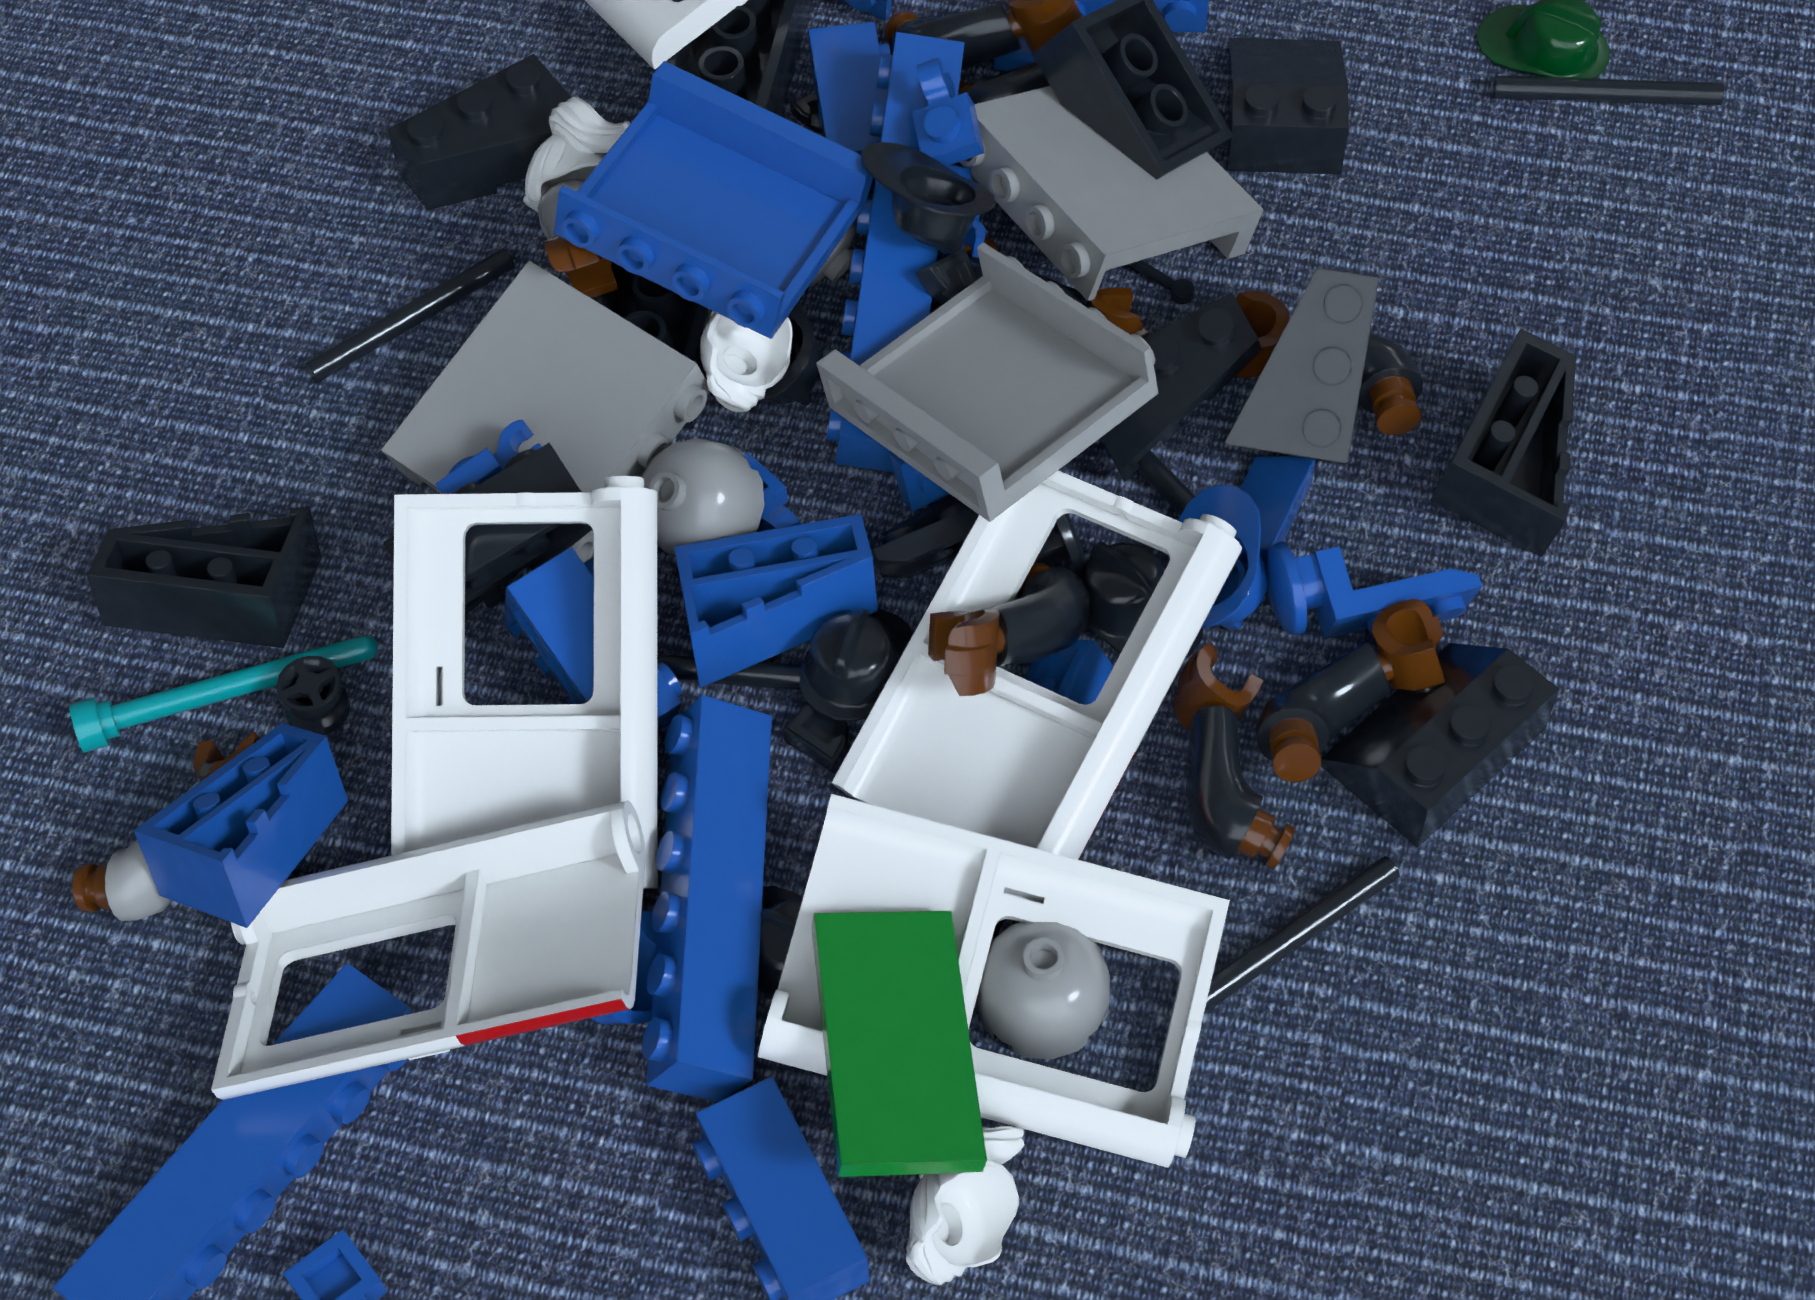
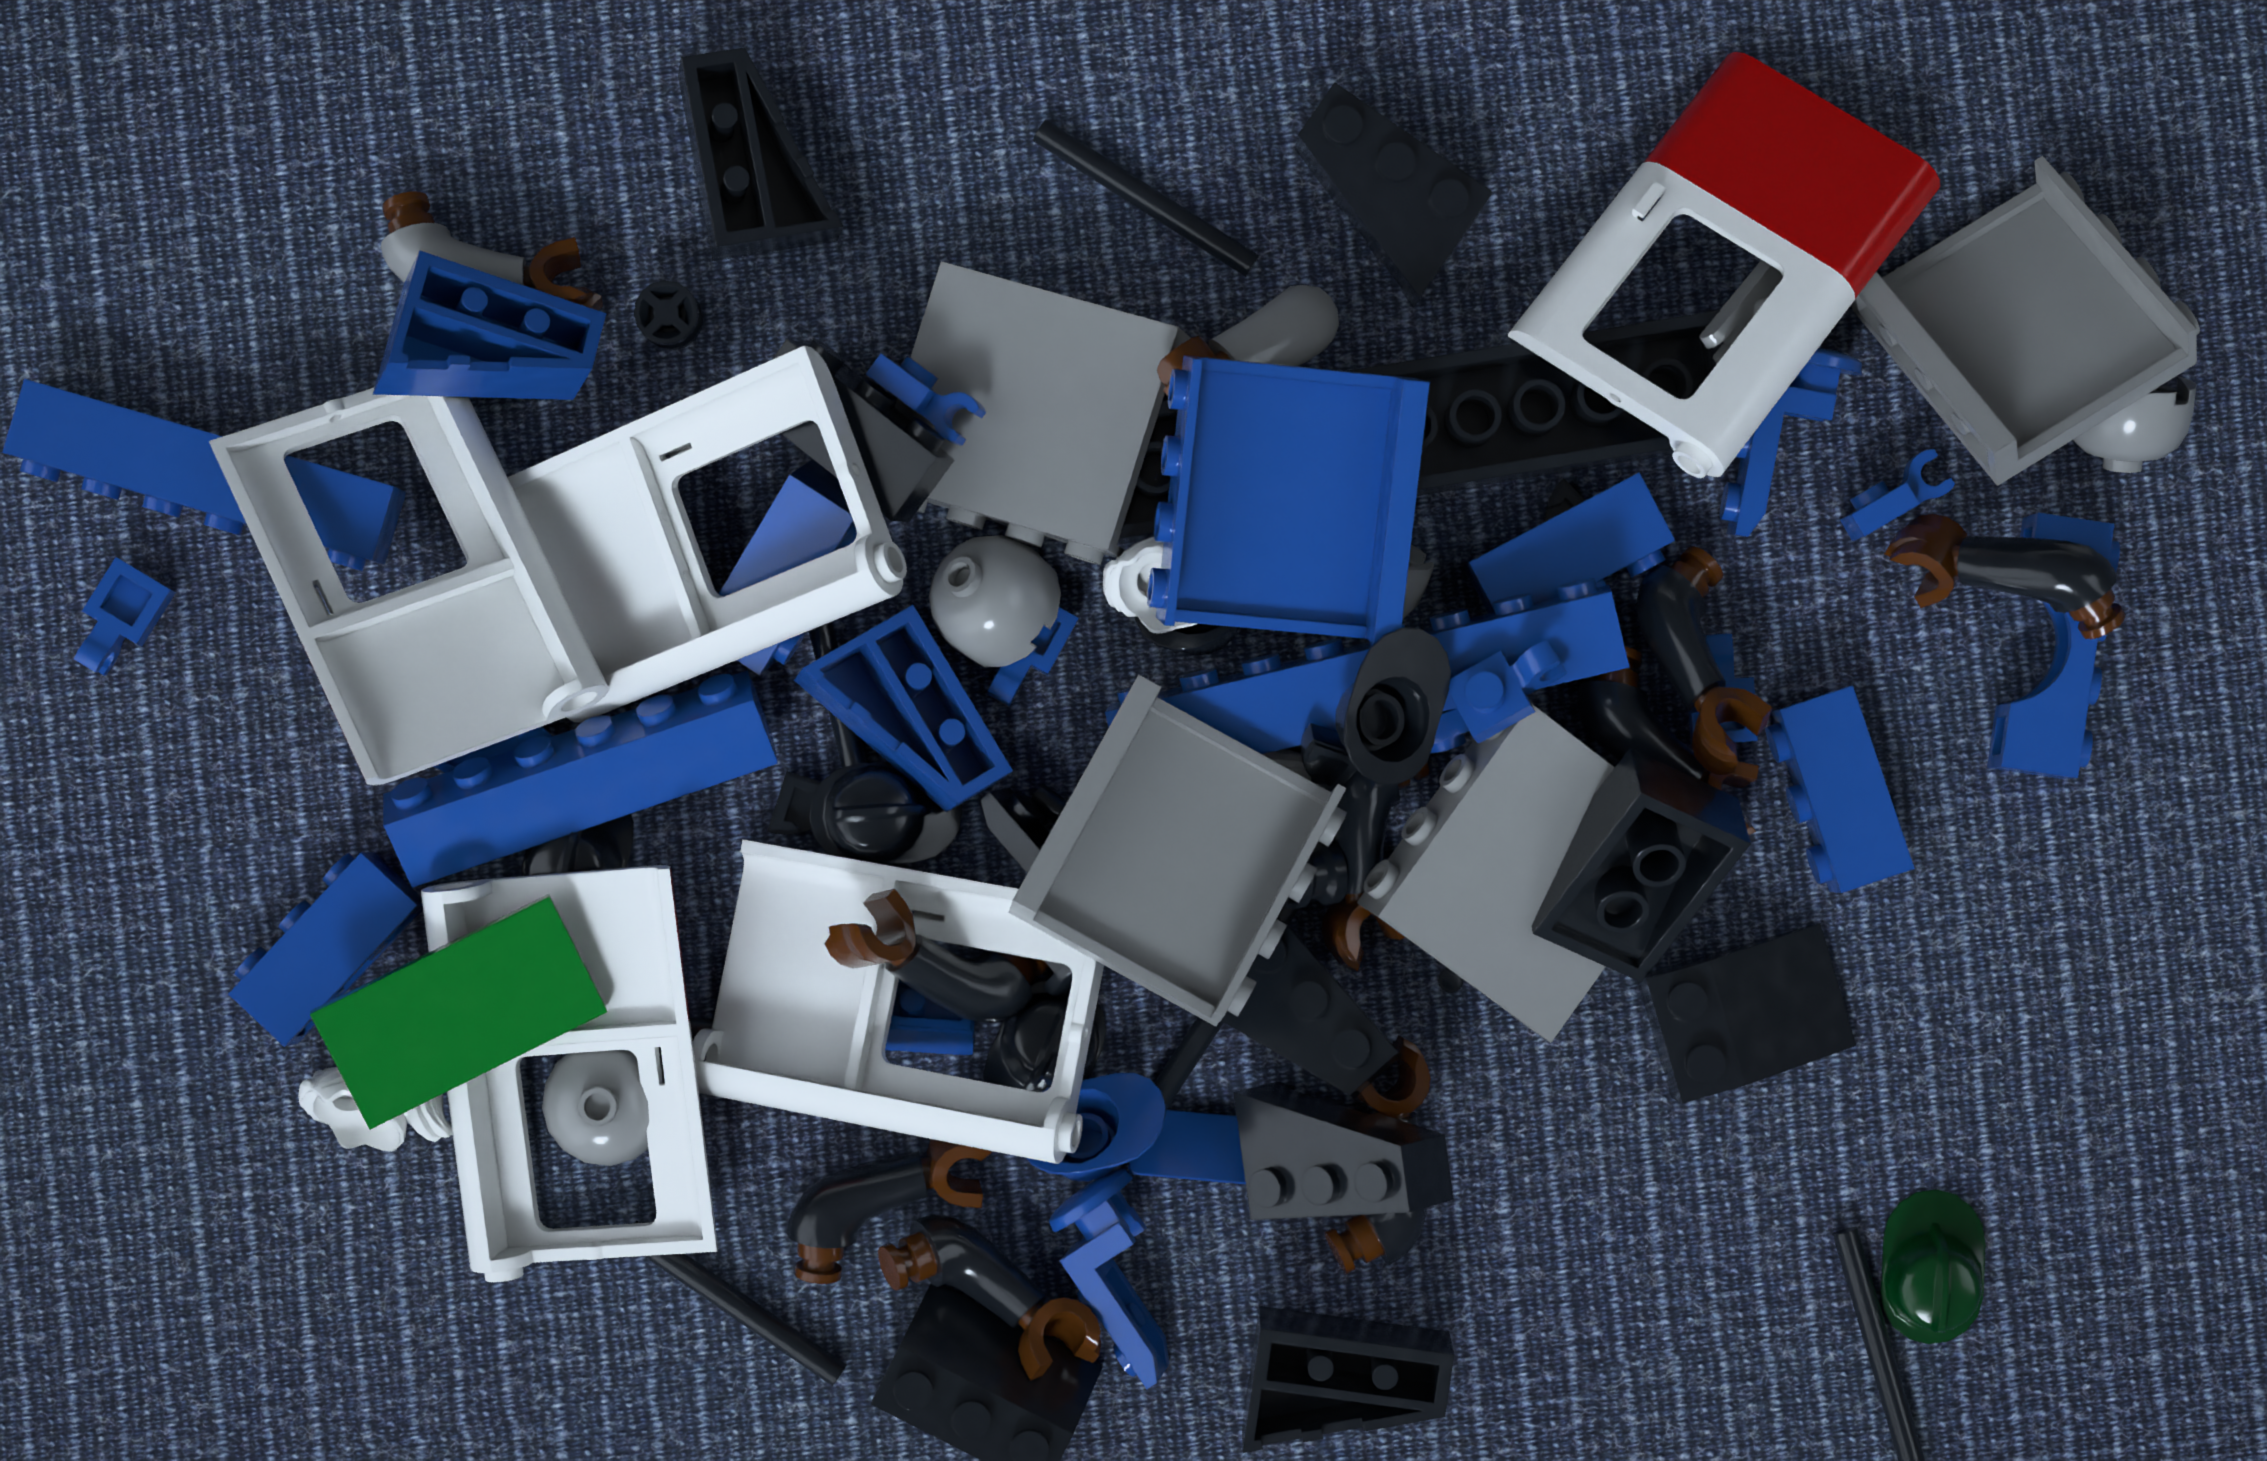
camera: 65 degrees right, 30 degrees up
(101, 721) = (573, 126): teal piece -> none
(573, 149) = (1364, 295): white hair -> none

